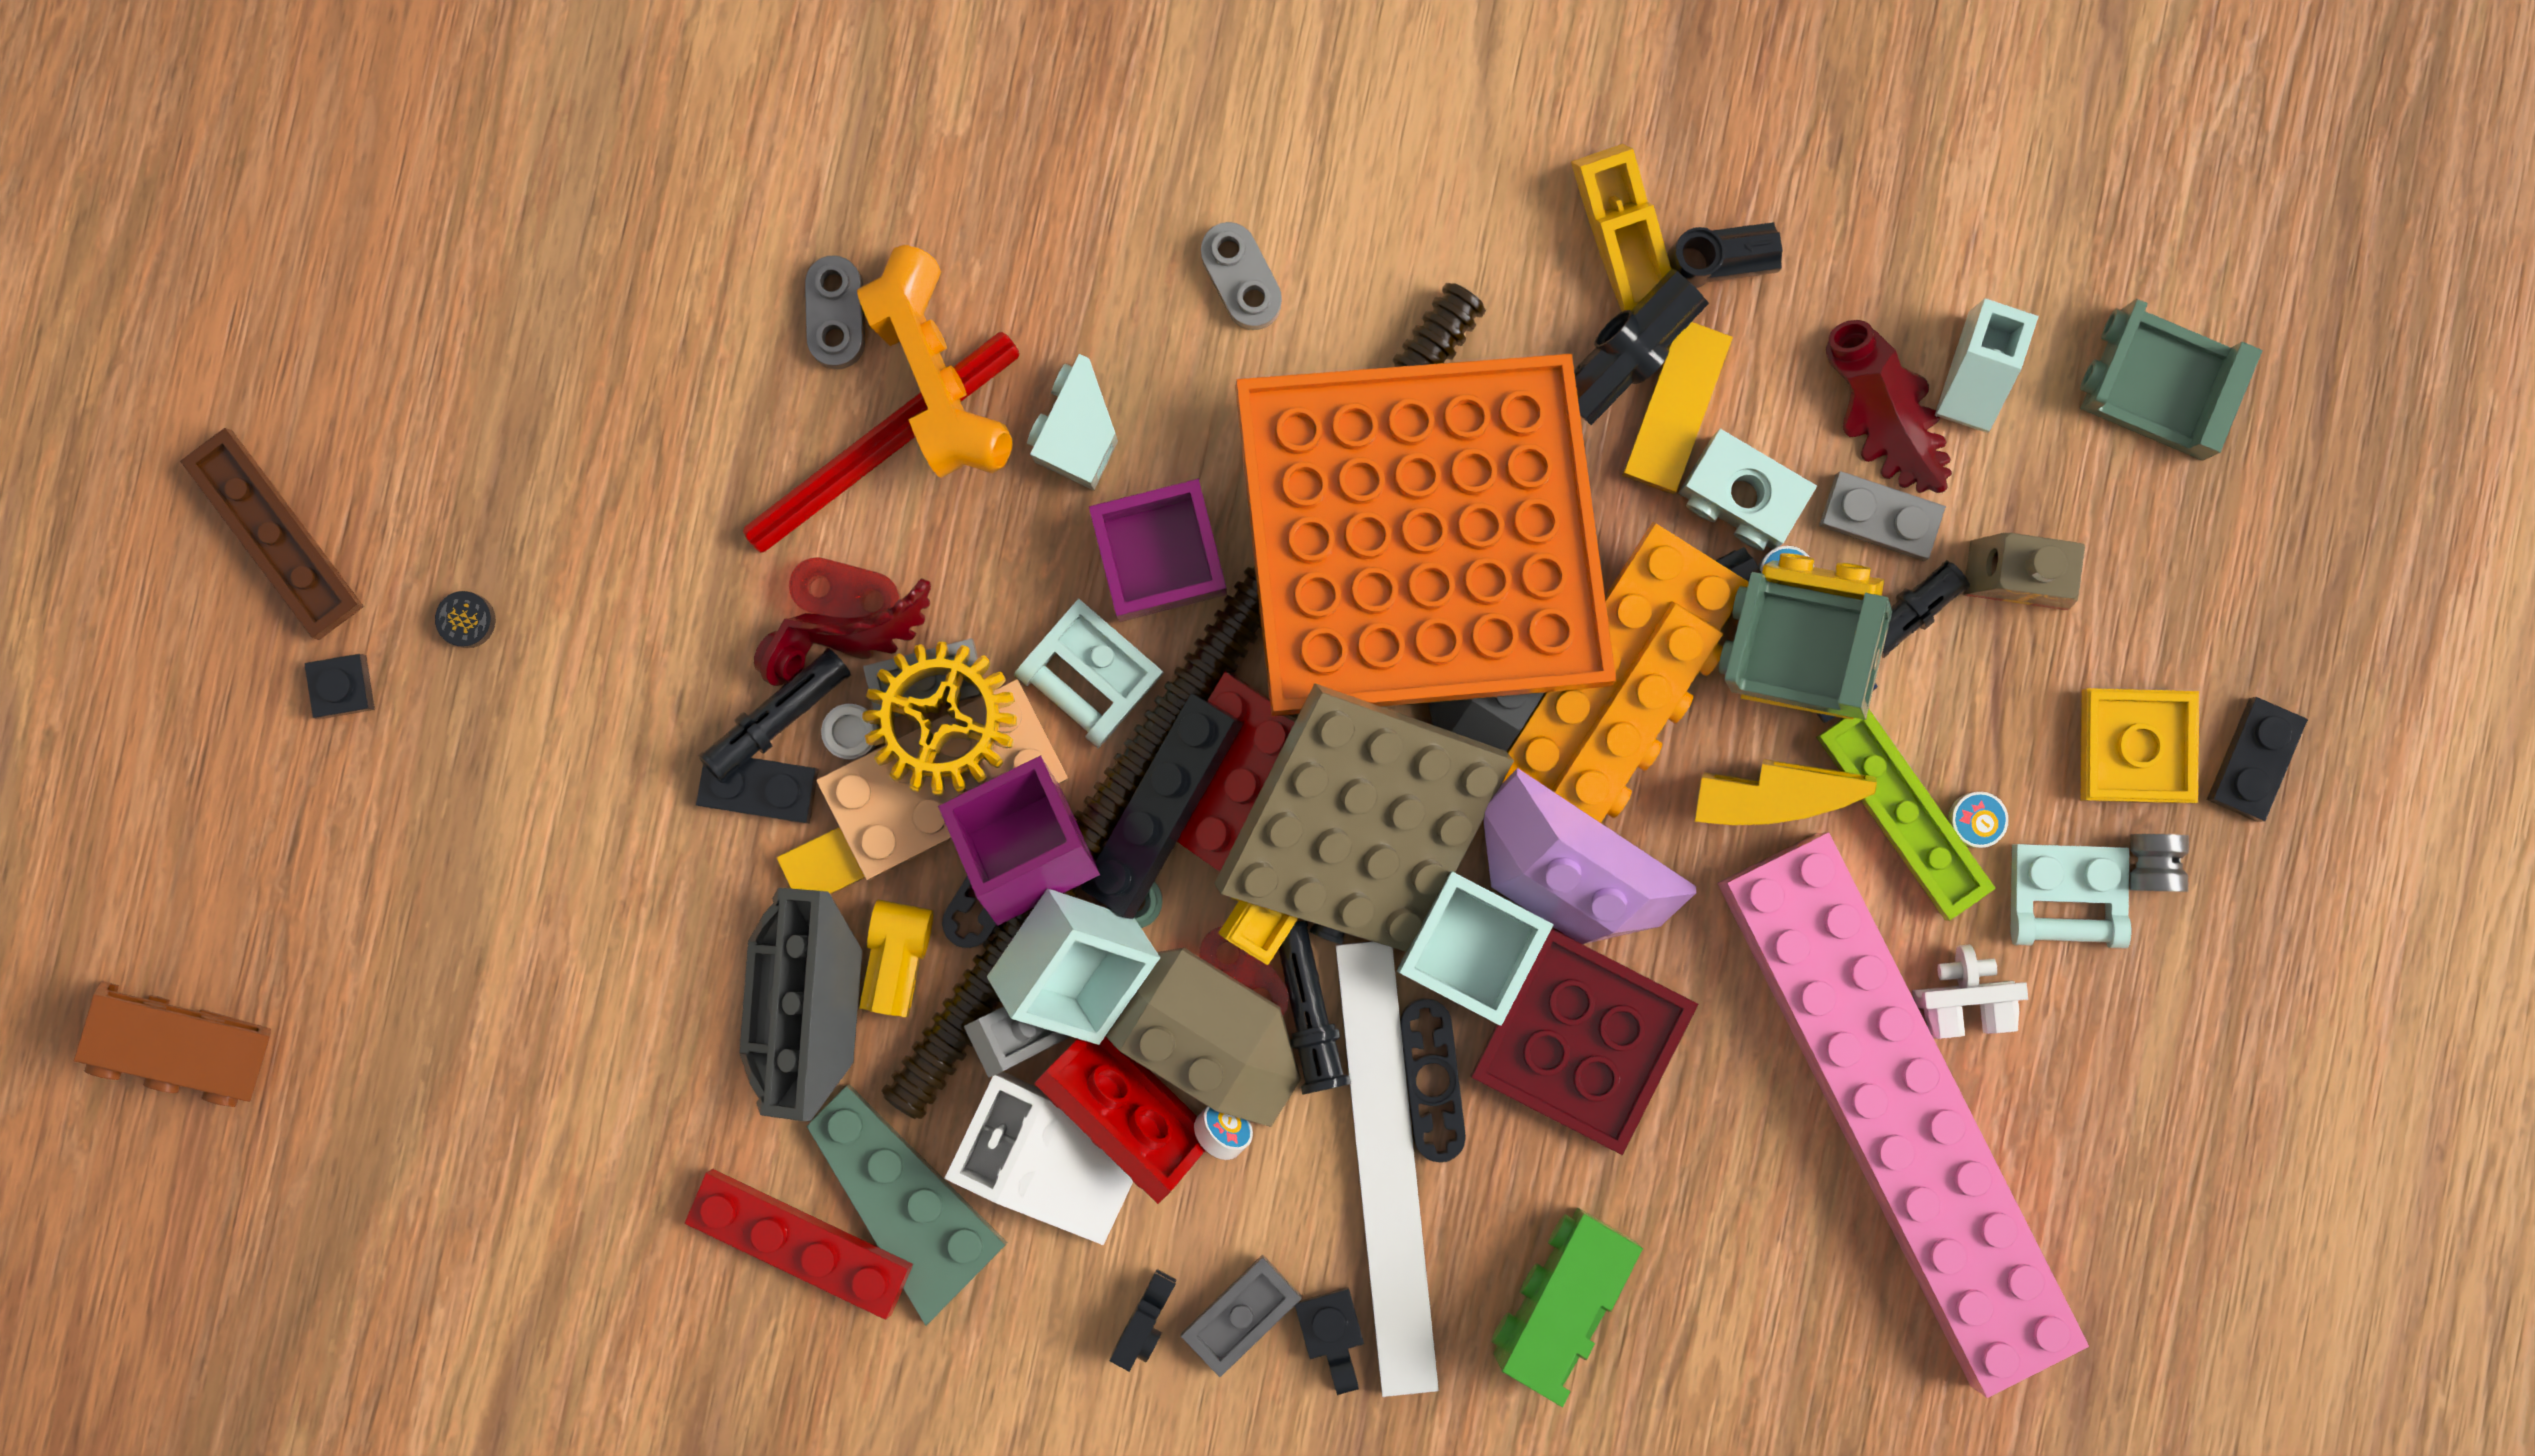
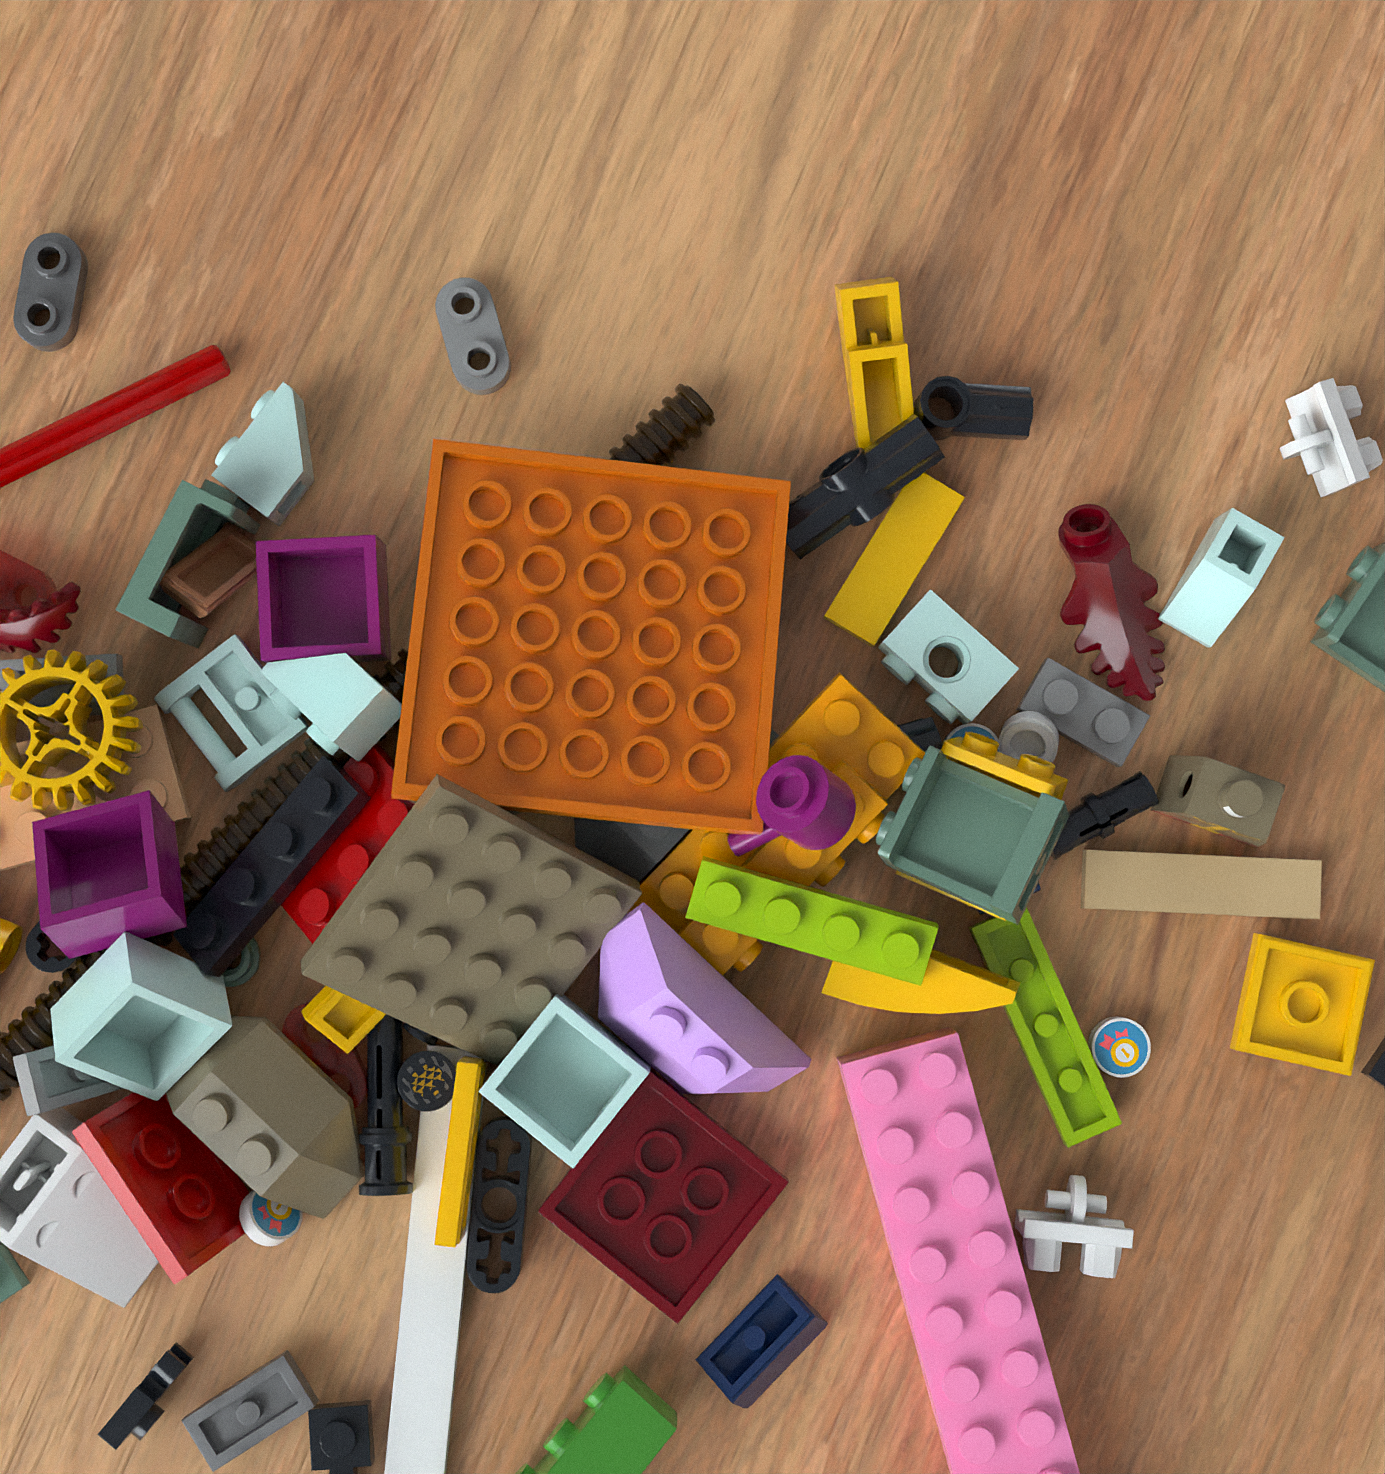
camera: 15 degrees right, 0 degrees up
(896, 313) = (126, 433): light orange plate -> none
(1012, 536) = (187, 523): none -> sand green panel
(1050, 543) = (211, 572): none -> nougat tile
(1194, 636) = (339, 699): none -> light aqua slope
(1345, 977) = (426, 1081): none -> tile
(1391, 1034) = (460, 1151): none -> yellow tile
(1645, 647) = (802, 804): none -> magenta piece
(1675, 754) = (812, 920): none -> lime plate
(1701, 1159) = (761, 1342): none -> dark blue slope
(1837, 545) = (1029, 734): none -> white tile
(2023, 654) = (1201, 884): none -> tan tile
(2058, 216) = (1327, 439): none -> white hips
(2070, 876) = (1204, 1125): light aqua plate -> none
(2159, 862) = (1298, 1130): flat silver wheel -> none

